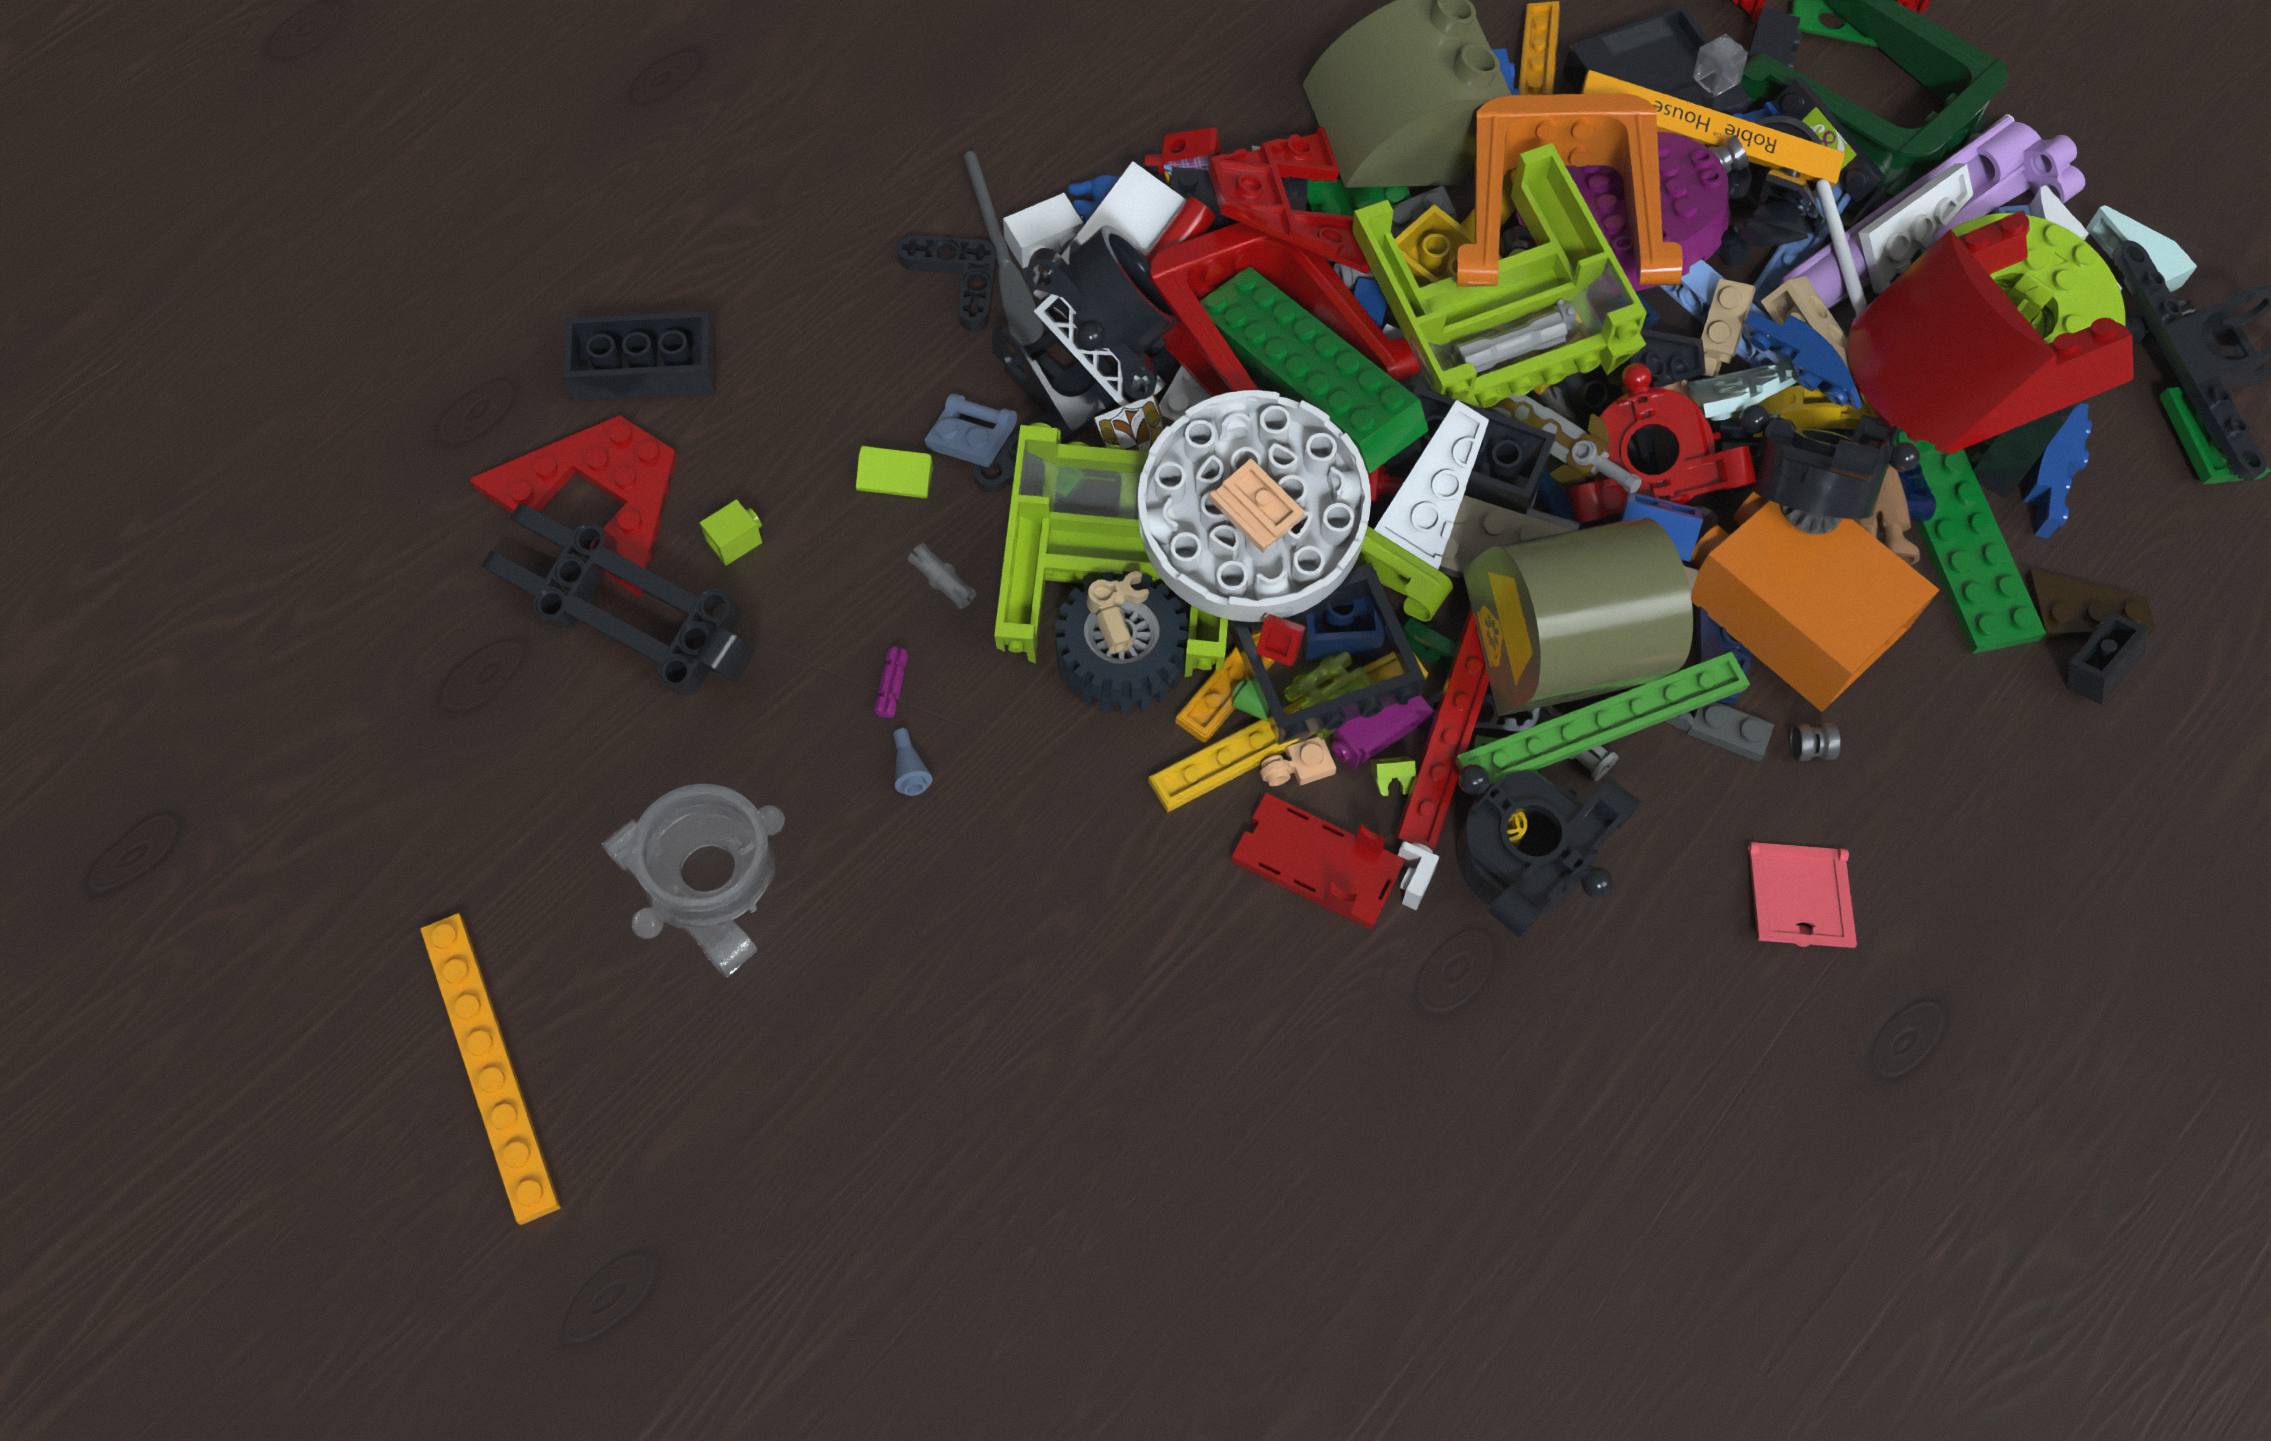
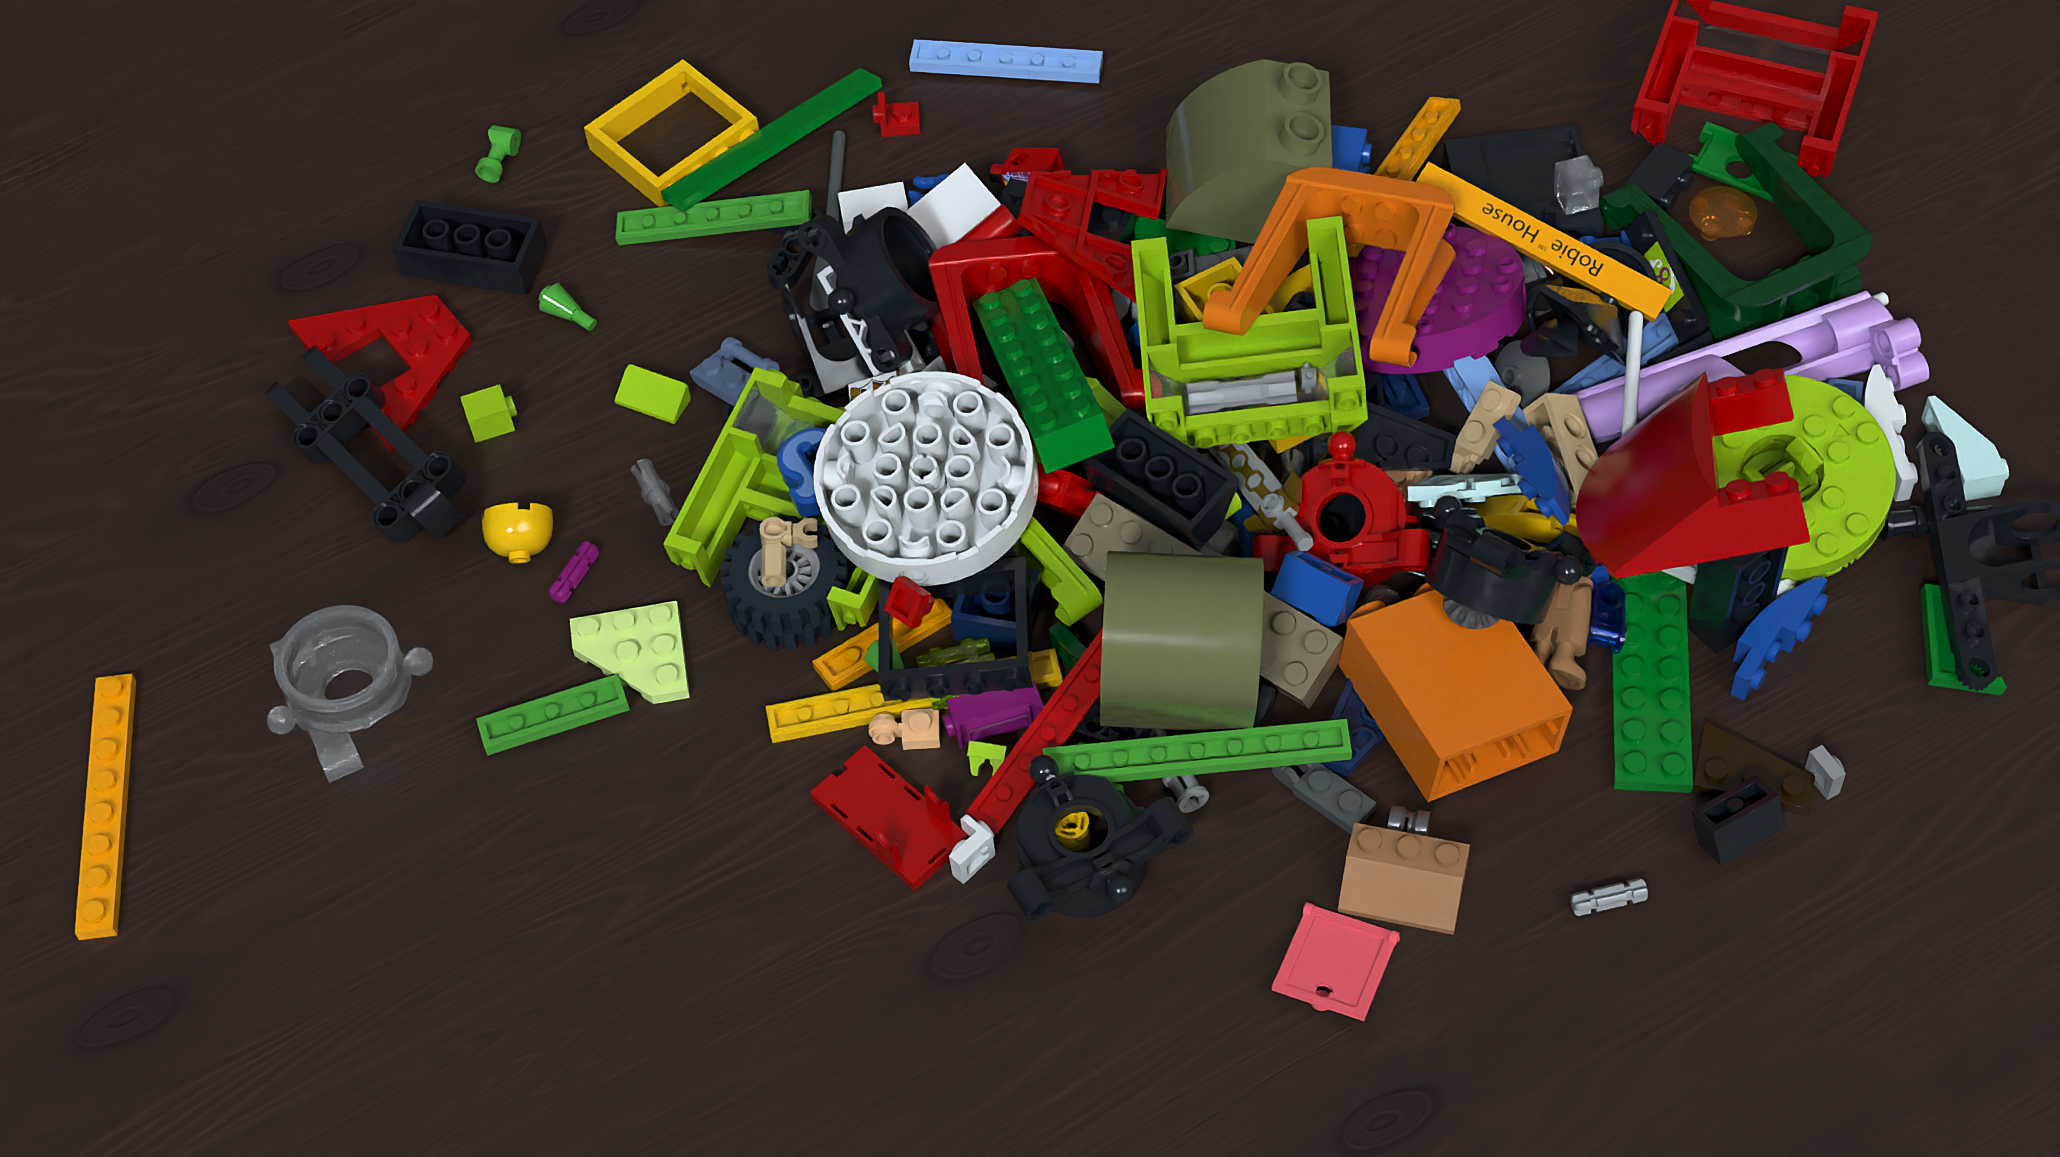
camera: 25 degrees right, 10 degrees down
(624, 235) = (504, 142): none -> bright green leg
(757, 396) = (558, 302): none -> bright green cone
(760, 160) = (648, 102): none -> yellow window
(819, 654) = (517, 531): none -> yellow cylinder
(881, 270) = (714, 217): none -> bright green tile
(906, 176) = (771, 139): none -> green tile
(910, 772) = (557, 651): sand blue cone -> none
(934, 841) = (552, 714): none -> bright green plate
(990, 748) = (639, 646): none -> yellowish green plate
(1021, 126) = (896, 118): none -> red bracket
(1104, 528) = (795, 467): none -> blue animal
(1107, 46) = (1006, 61): none -> light blue plate
(1257, 505) = (917, 473): light nougat plate -> none
(1430, 497) = (1106, 502): white wing -> none
(1731, 154) = (1541, 270): flat silver wheel -> none
(1750, 262) = (1523, 373): none -> dark grey dish
(1833, 794) = (1403, 878): none -> medium nougat slope
(1836, 65) = (1722, 212): none -> clear orange dish
(1911, 224) = (1730, 357): white wing -> none
(2016, 762) = (1609, 896): none -> light grey axle
(2158, 590) = (1827, 771): none -> light grey plate

